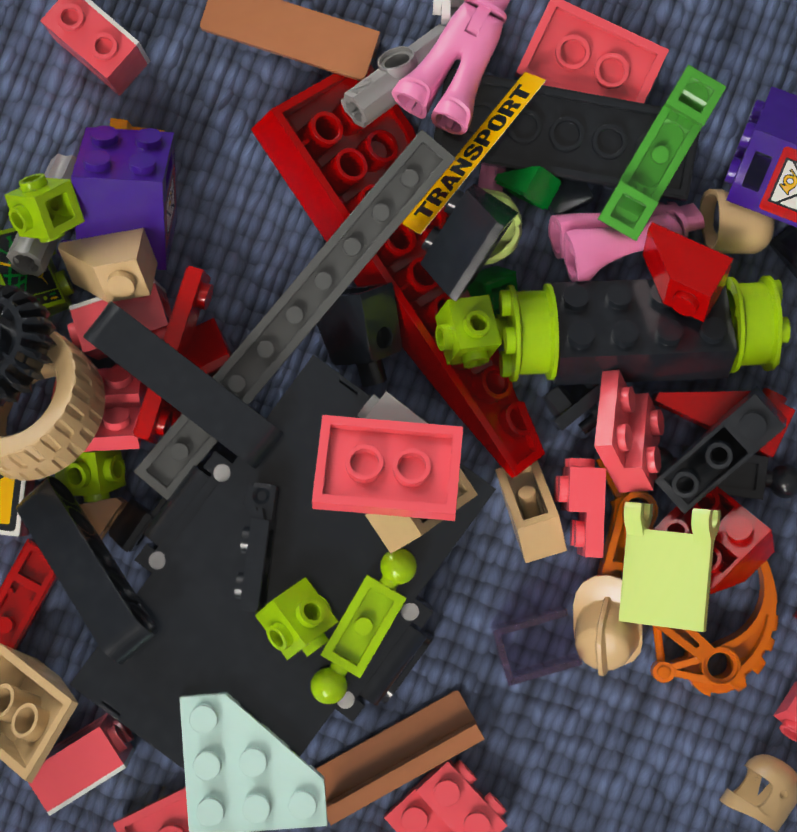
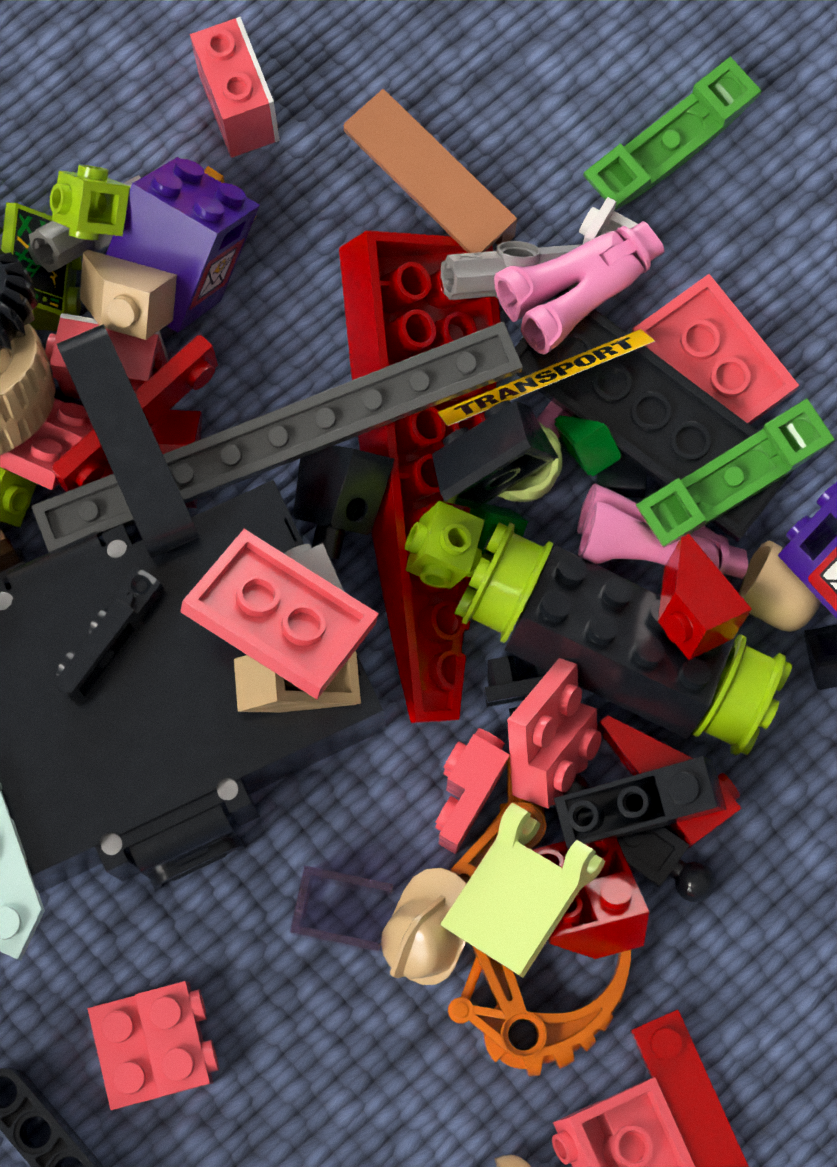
camera: 30 degrees right, 10 degrees down
(297, 620) = (106, 727): lime brick -> none
(363, 626) = (169, 773): lime plate -> none
(398, 755) = (136, 949): nougat panel -> none
(532, 513) = (413, 772): tan slope -> none

